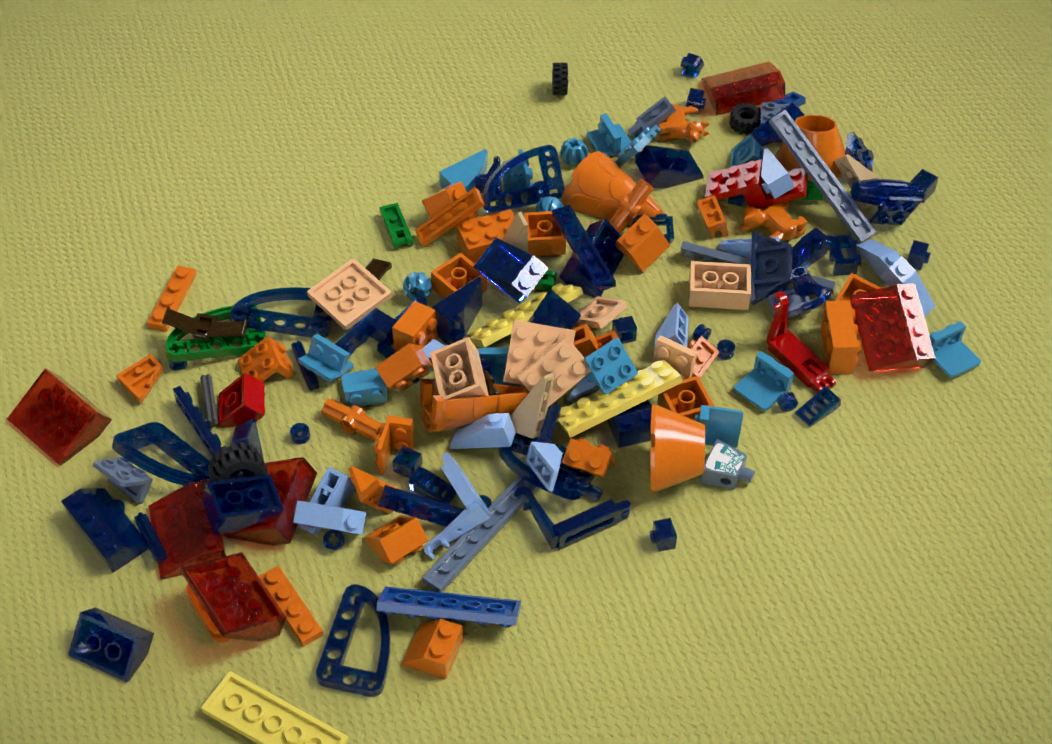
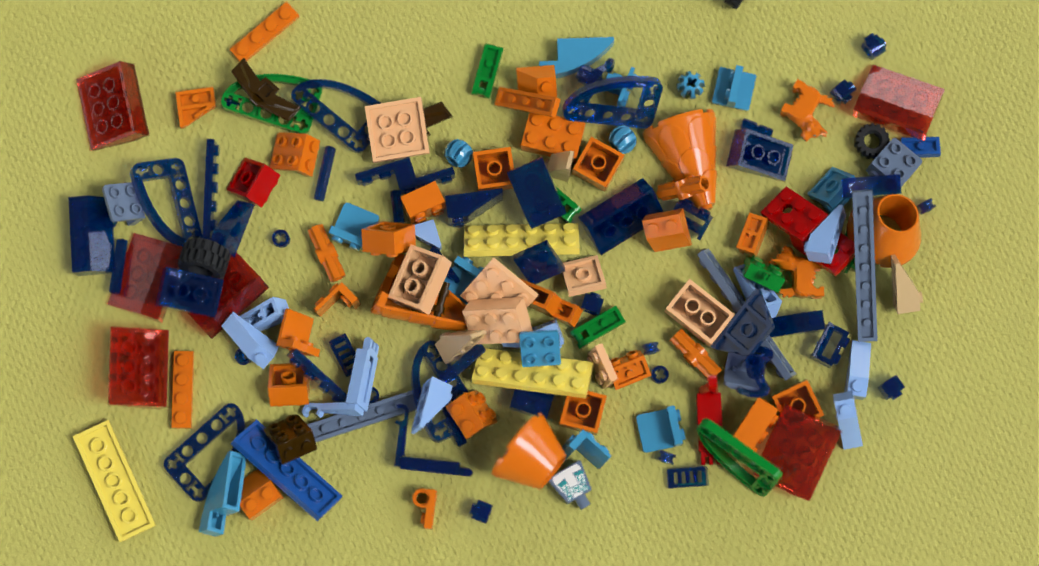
camera: 35 degrees right, 30 degrees up
(110, 643) = (42, 341): clear blue slope -> none
(209, 399) = (233, 160): dark grey axle -> none
(326, 359) = (339, 185): dark azure bracket -> none
(402, 664) = (224, 494): none -> dark azure slope
(407, 462) = (335, 318): clear blue plate -> none
(437, 573) = (291, 438): none -> dark brown bracket
(486, 432) = (411, 338): light blue slope -> none
(535, 190) = (623, 112): clear blue bush -> none
(583, 248) = (606, 212): clear blue plate -> none
(609, 559) = (428, 517): none -> orange plate
(637, 144) = (737, 124): dark azure plate -> none
(643, 343) = (598, 327): none -> green plate
(652, 116) = (784, 93): sand blue hinge -> none
(675, 326) = (626, 335): light blue slope -> none
(742, 226) = (765, 275): none -> green plate
(742, 318) = (695, 354): none -> orange piece
(857, 150) = (927, 255): plate -> none
(857, 345) = (717, 440): none -> green beam
(893, 197) = (910, 320): clear blue plate -> none
(927, 181) = (953, 321): clear blue brick -> none
(951, 352) = (834, 501): dark azure bracket -> none

